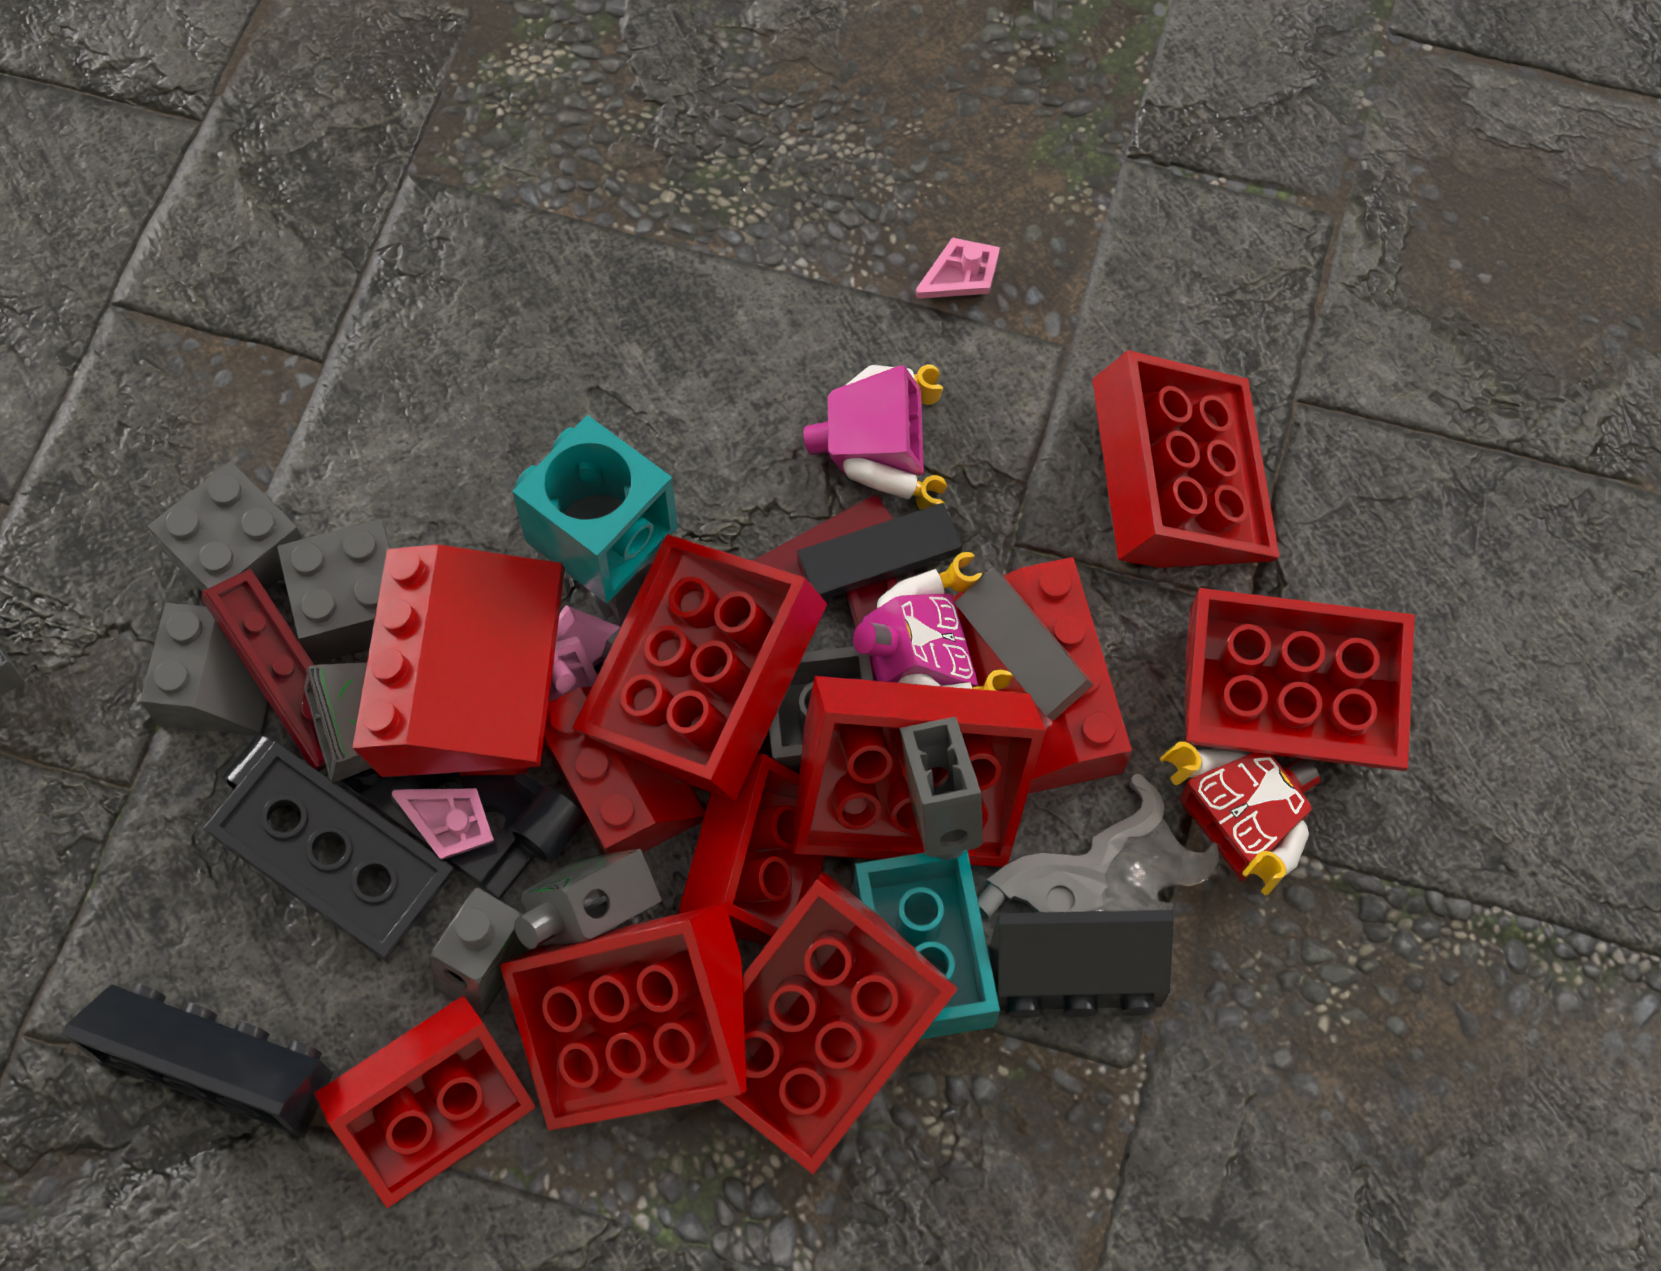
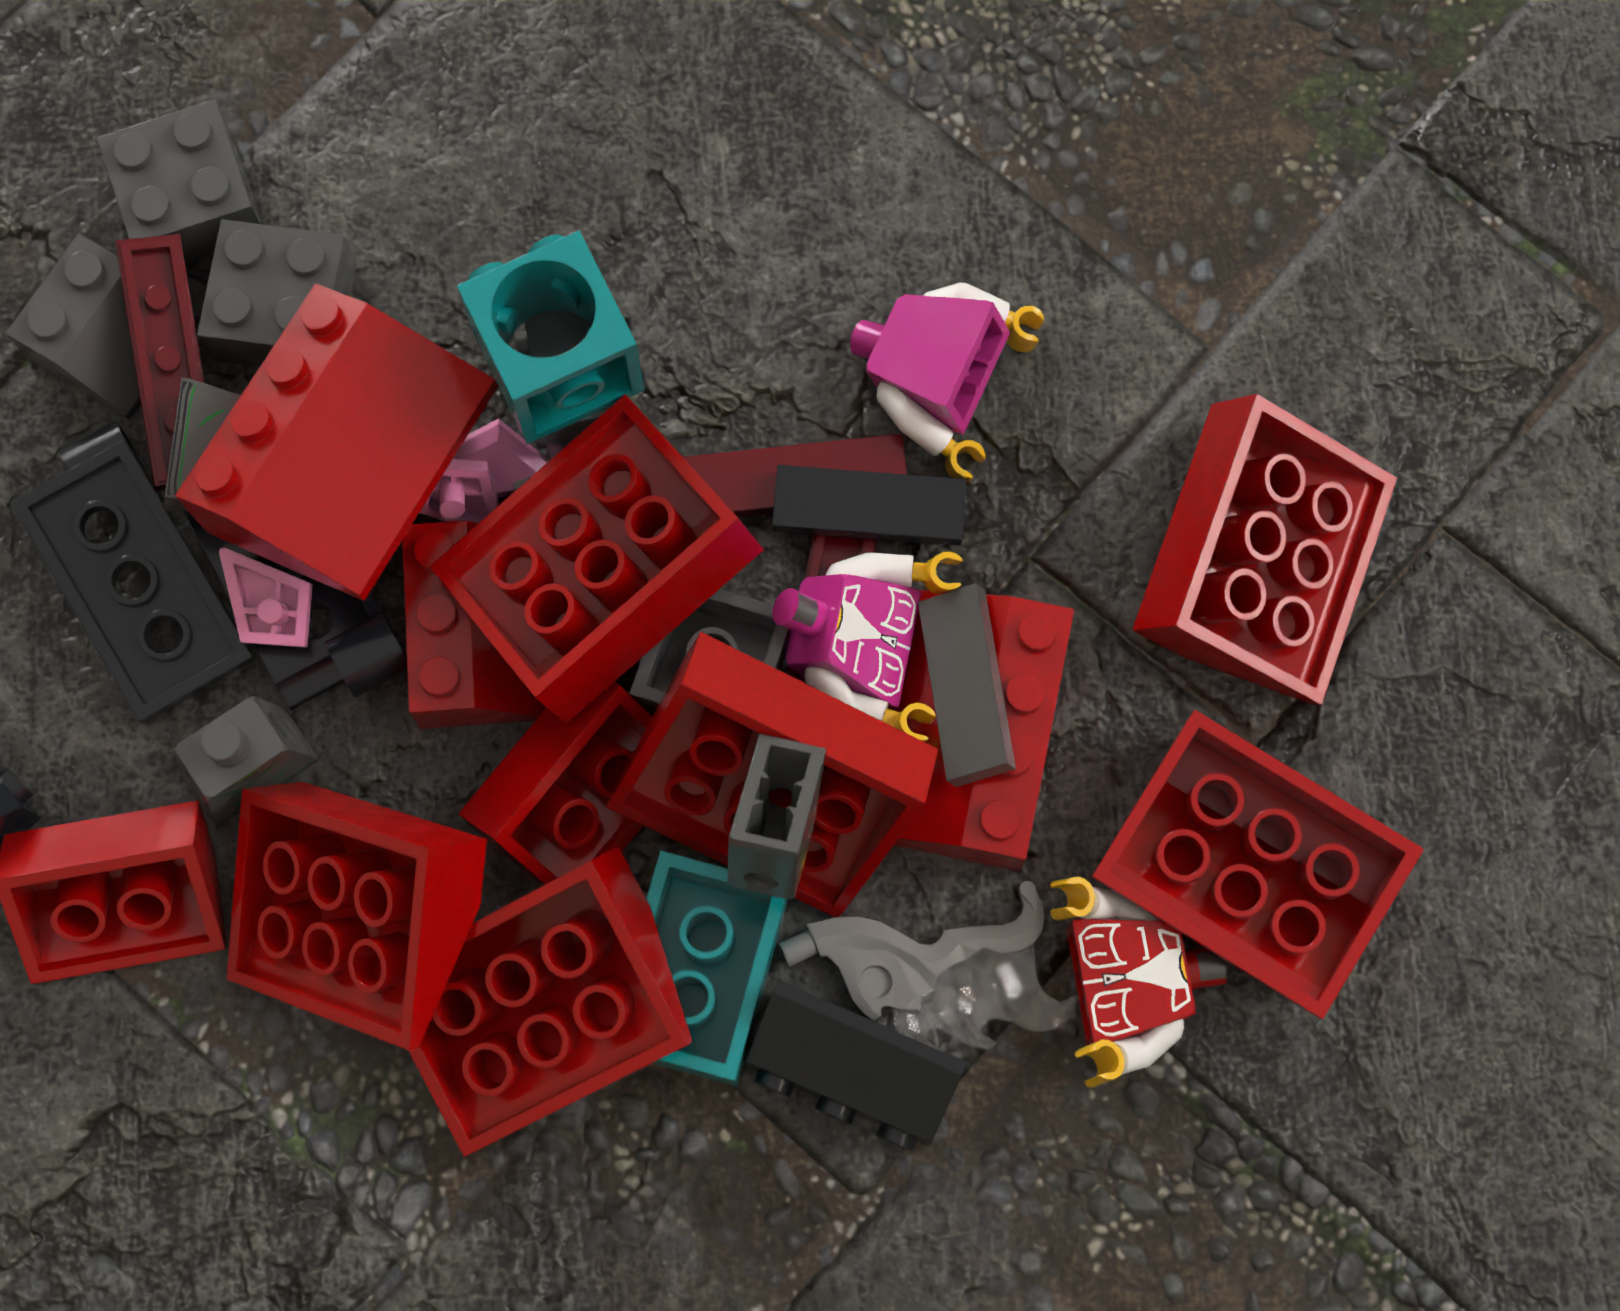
camera: 25 degrees right, 10 degrees up
(568, 906) = (359, 760): dark grey torso -> none
(960, 270) = (1131, 206): bright pink piece -> none

